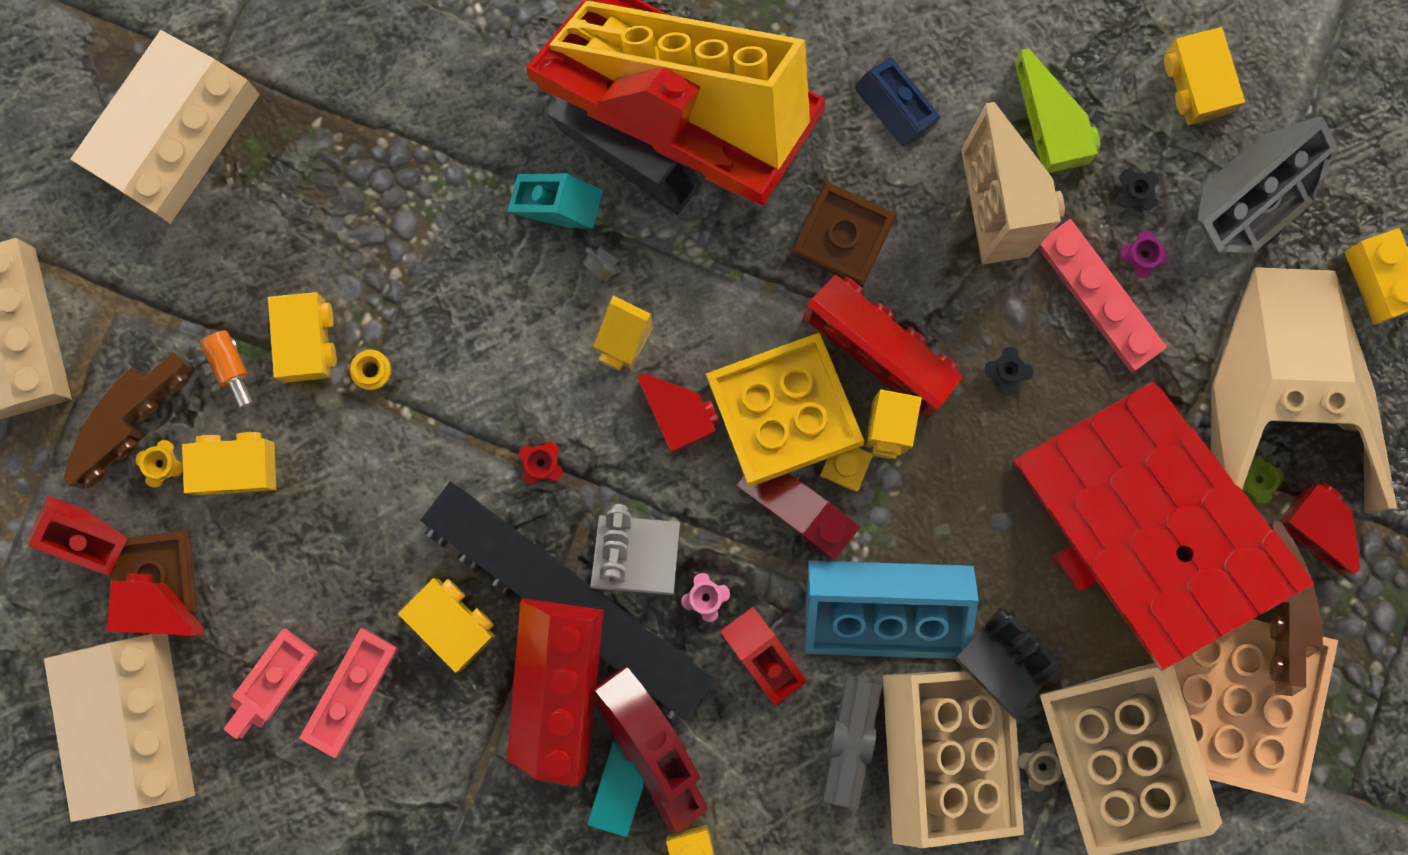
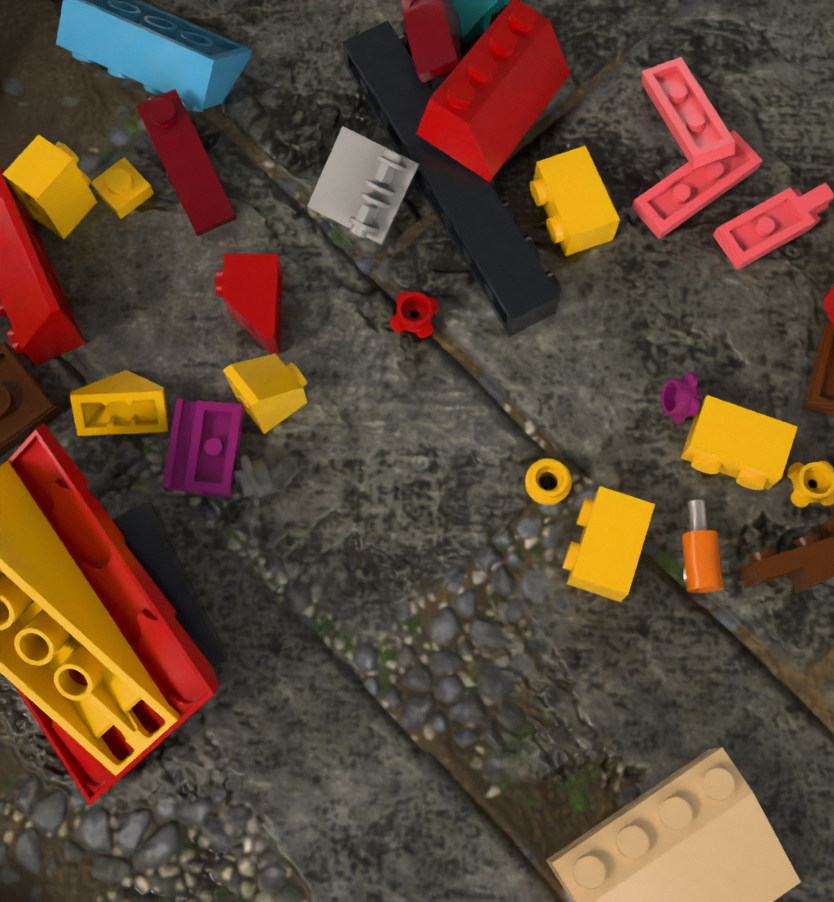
camera: 155 degrees left, 10 degrees down
(289, 485) = (681, 398): none -> magenta plate
(381, 754) = (688, 113): none -> coral plate
(556, 200) = (269, 568): teal slope -> none
(652, 102) = (93, 581): red slope -> none
(655, 270) = (204, 448): none -> magenta plate
(694, 601) = (316, 118): bright pink plate -> none
(741, 278) = (120, 406): none -> yellow slope
(763, 656) = (290, 58): red slope -> none
(784, 409) = (148, 252): yellow plate -> none

